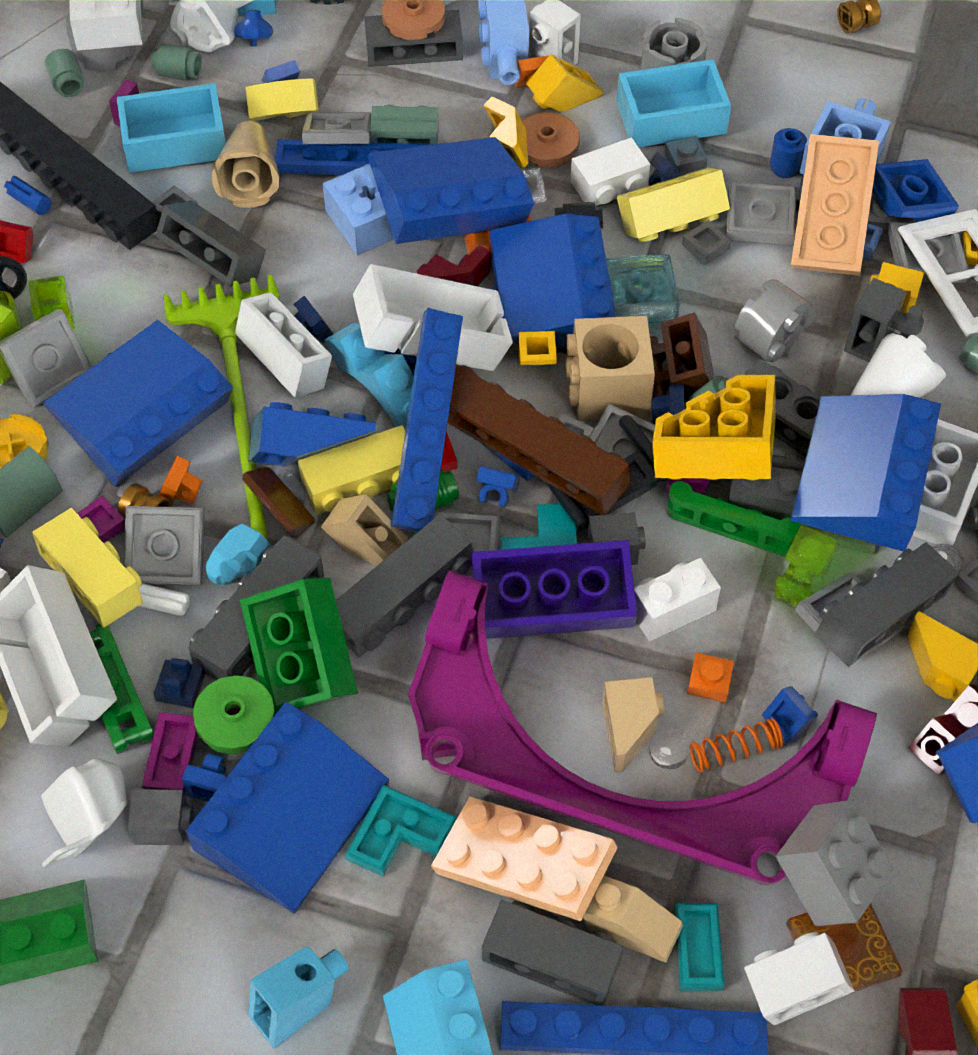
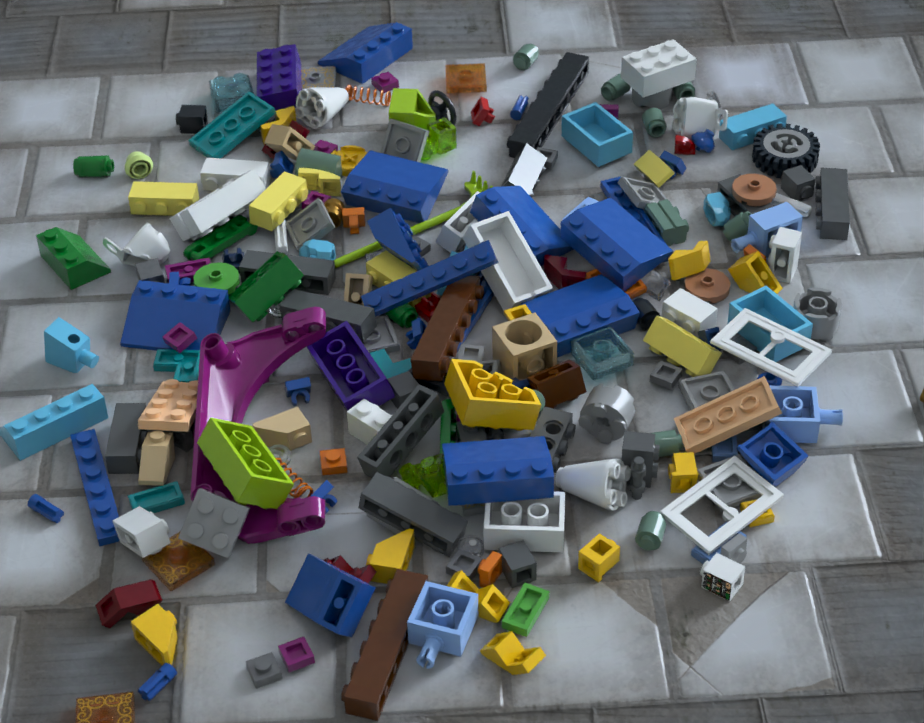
camera: 70 degrees right, 15 degrees down
(54, 495) = (320, 180): none -> light yellow slope
(246, 167) = (590, 168): tan cone -> none
(247, 54) = (684, 145): none -> red tile
(279, 500) = (359, 251): reddish brown slope -> none
(320, 280) = (535, 225): none -> blue slope
(353, 808) = (179, 337): none -> magenta plate
(410, 72) = (716, 209): none -> medium azure rock
(463, 59) = (737, 226): none -> sand green brick
(542, 675) = (298, 387): none -> blue tile
(733, 94) = (778, 335): none -> white door
(739, 782) = (245, 464): none -> lime brick
(743, 582) = (401, 432): none -> dark grey brick
(836, 291) = (669, 442): none -> sand green brick

